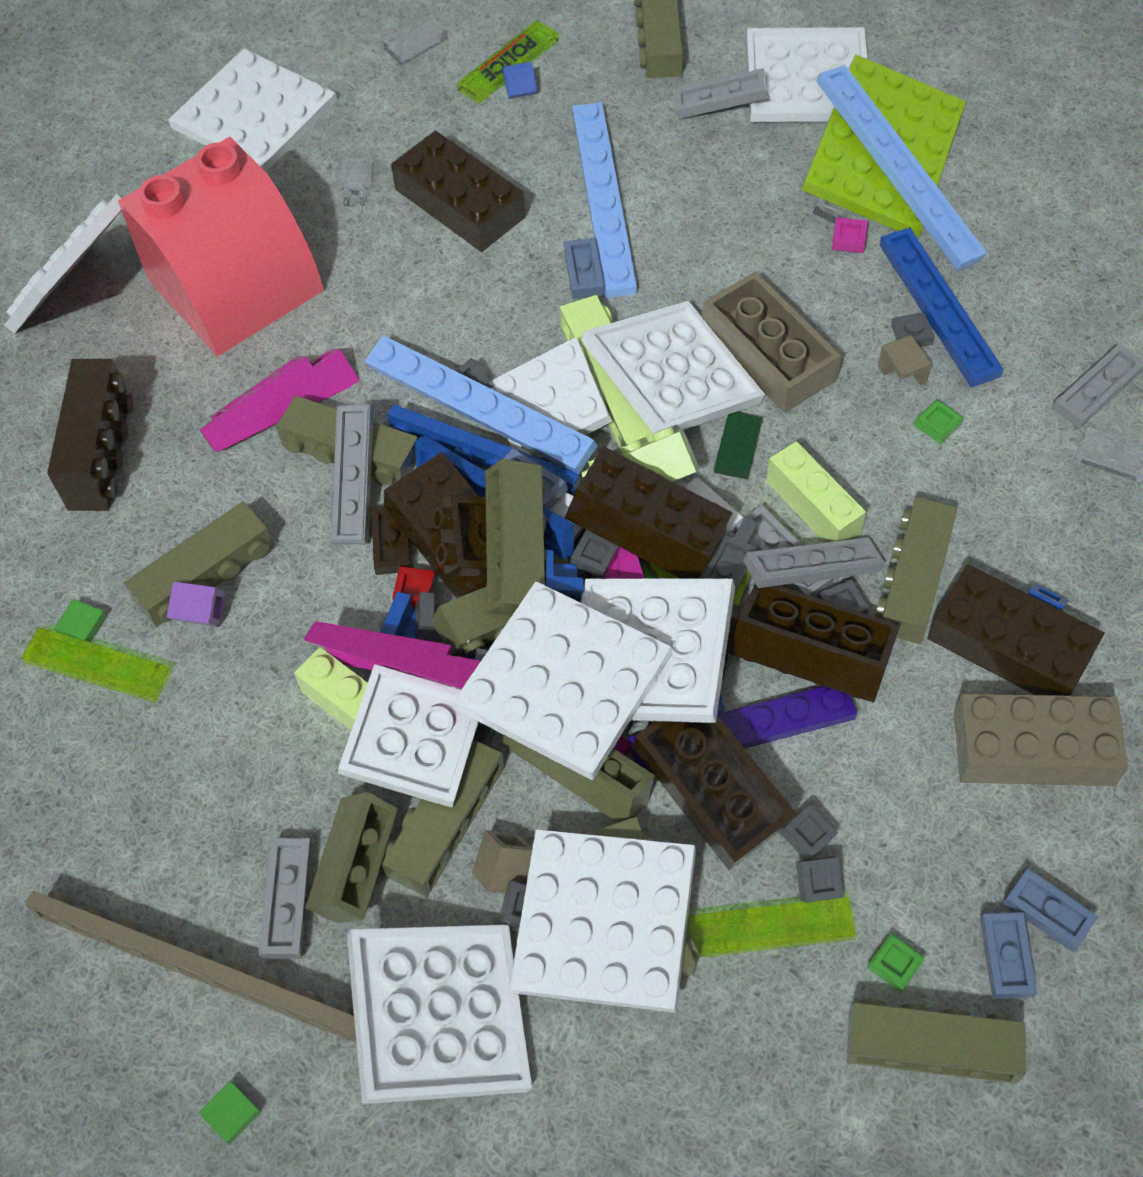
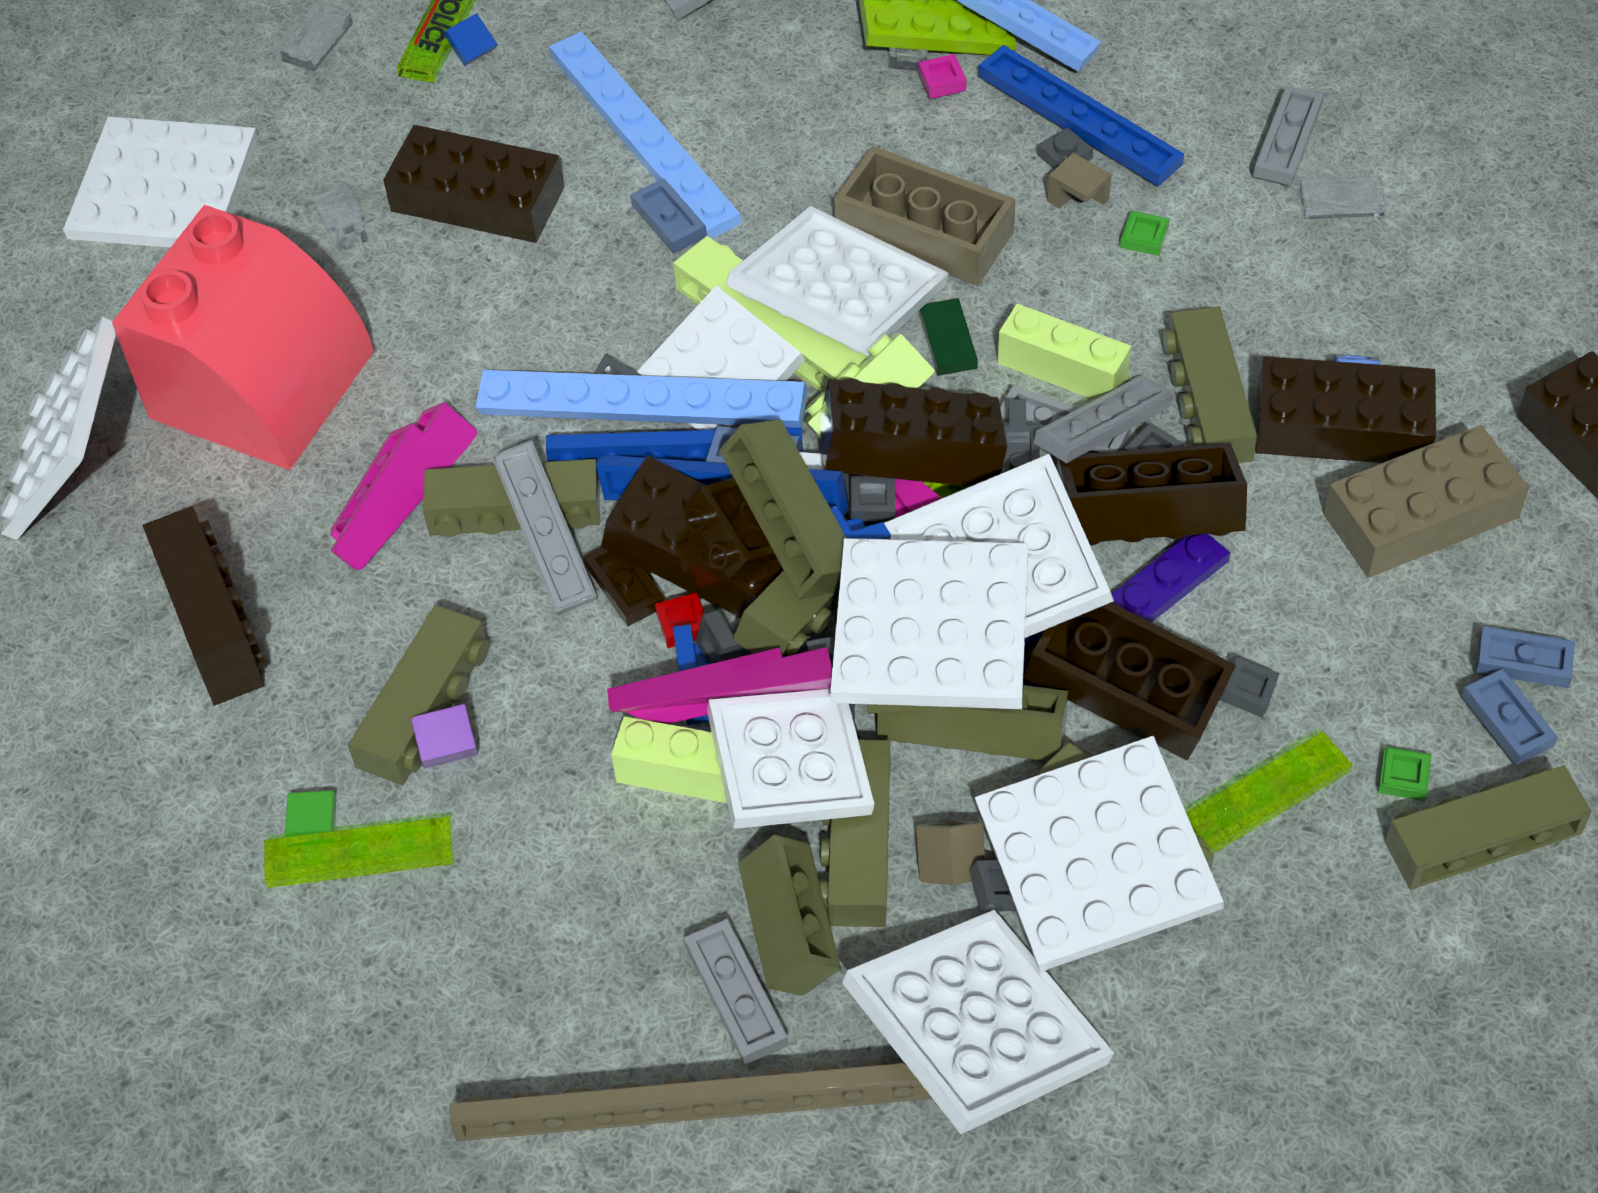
camera: 25 degrees left, 5 degrees down
(819, 879) = (1286, 725): dark grey plate -> none

